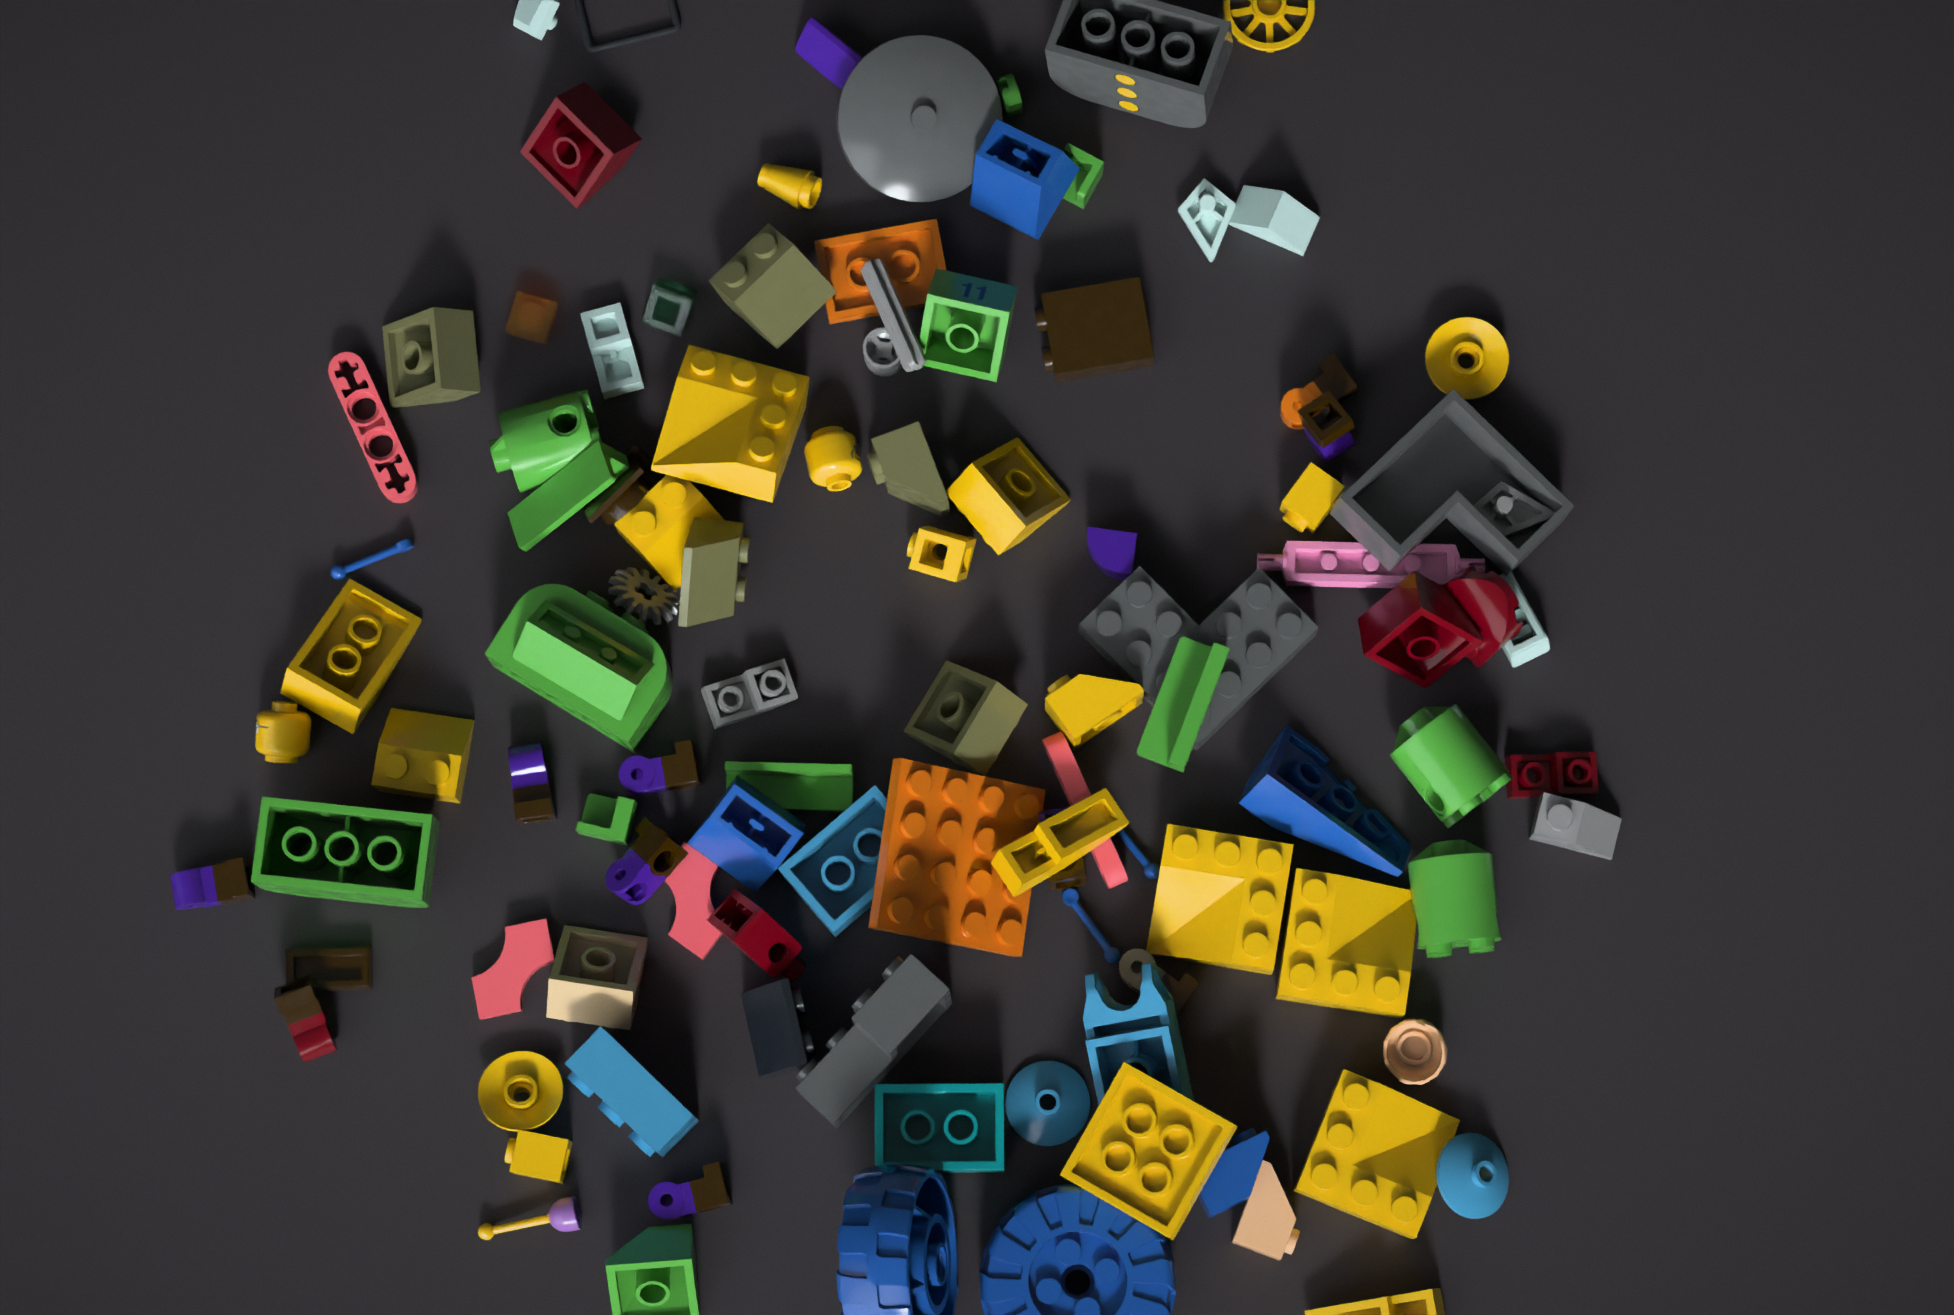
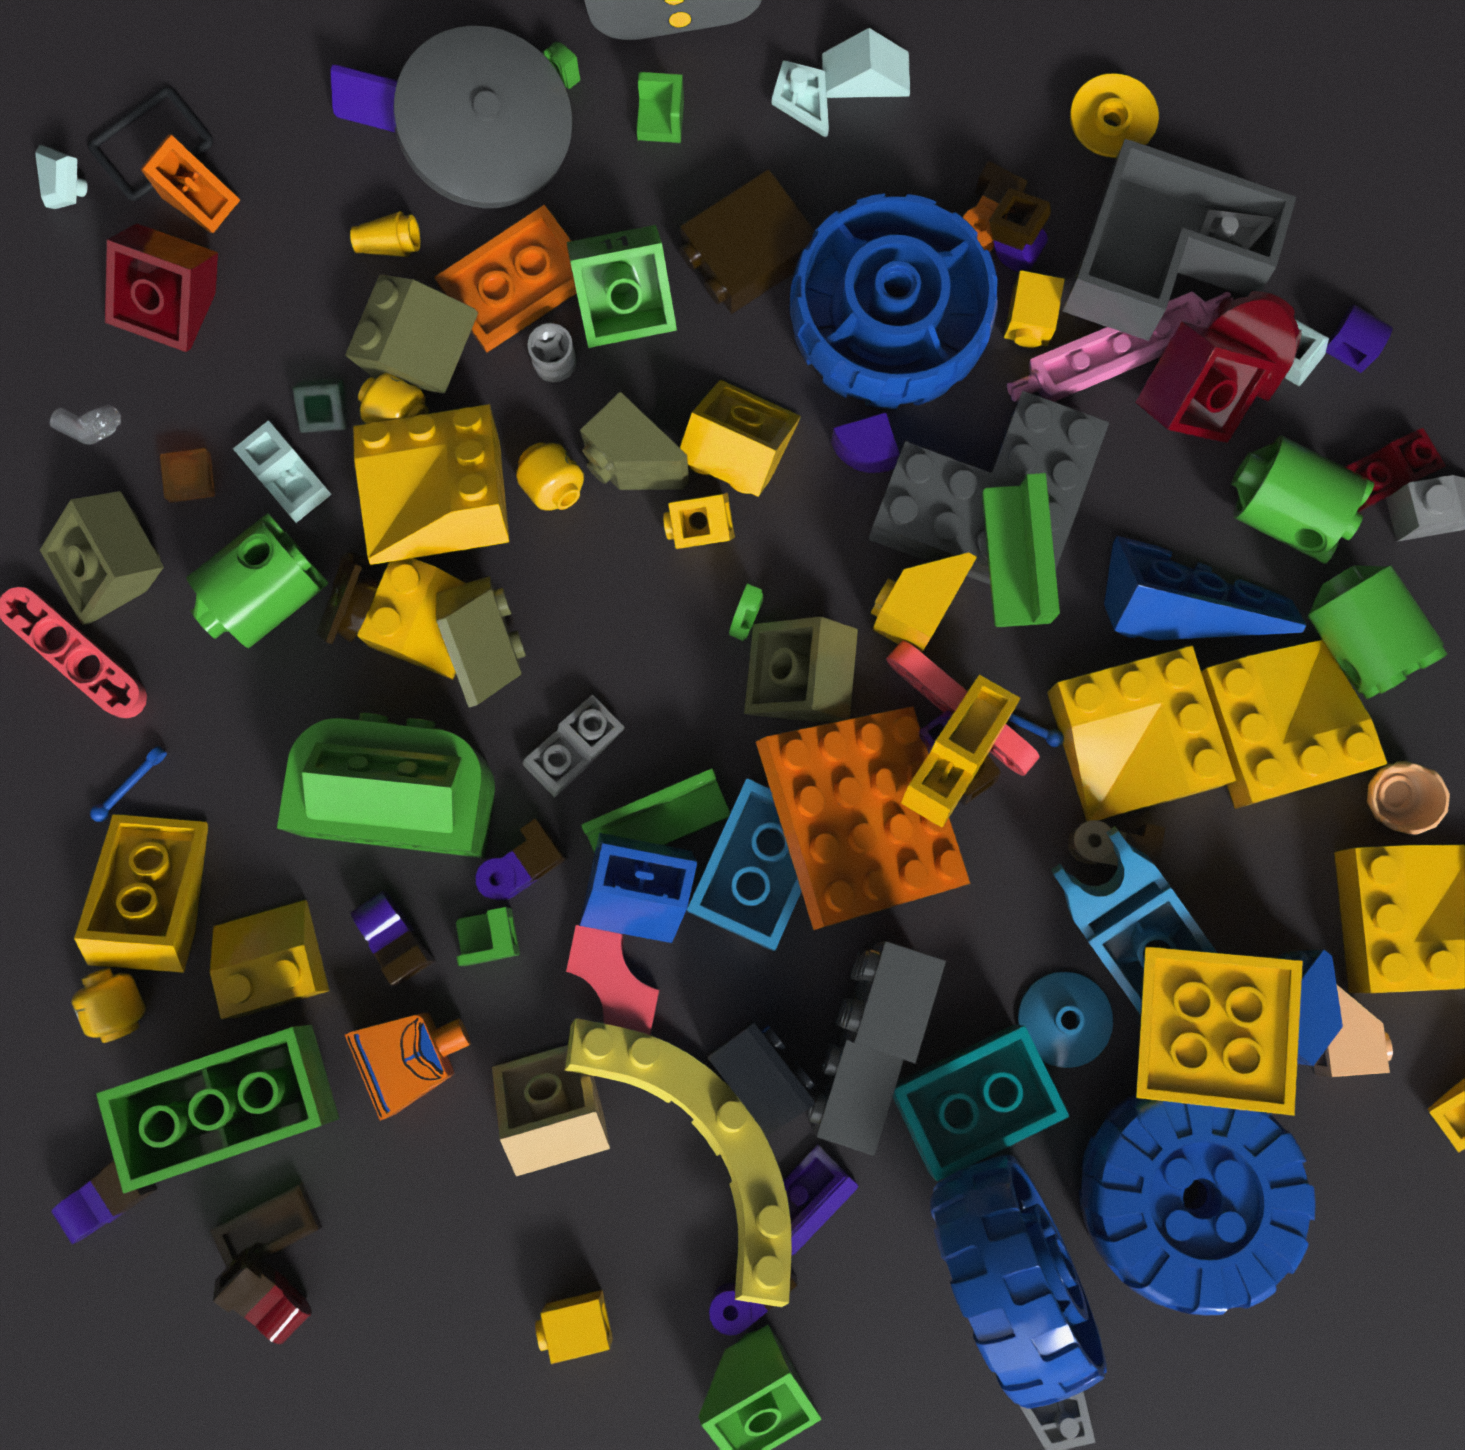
camera: 30 degrees left, 0 degrees up
(468, 240) = (89, 427): none -> clear arm
(499, 885) = (405, 1059): none -> orange torso
(502, 986) = (457, 1160): coral tile -> none
(516, 1074) = (502, 1261): yellow dish -> none
(563, 1216) = (629, 1379): hinge -> none
(566, 493) = (294, 626): bright green panel -> none
(629, 1094) = (641, 1219): dark azure brick -> none
(644, 68) = (188, 184): none -> orange slope
(644, 864) = (546, 967): leg -> none
(660, 604) = (400, 689): light grey gear -> none
(728, 1049) = (728, 1129): none -> light yellow plate
(729, 334) = (390, 399): none -> yellow head
(758, 936) = (697, 989): dark red torso -> none
(766, 1147) = (814, 1194): none -> dark purple slope
(893, 315) = (545, 308): light grey axle -> none
(943, 648) = (746, 612): none -> bright green tile
(1020, 179) = (608, 127): blue slope -> none
(1070, 898) = (988, 802): blue hinge -> none
(1181, 484) = (893, 300): none -> blue wheel
(1583, 648) = (1358, 338): none -> dark purple brick

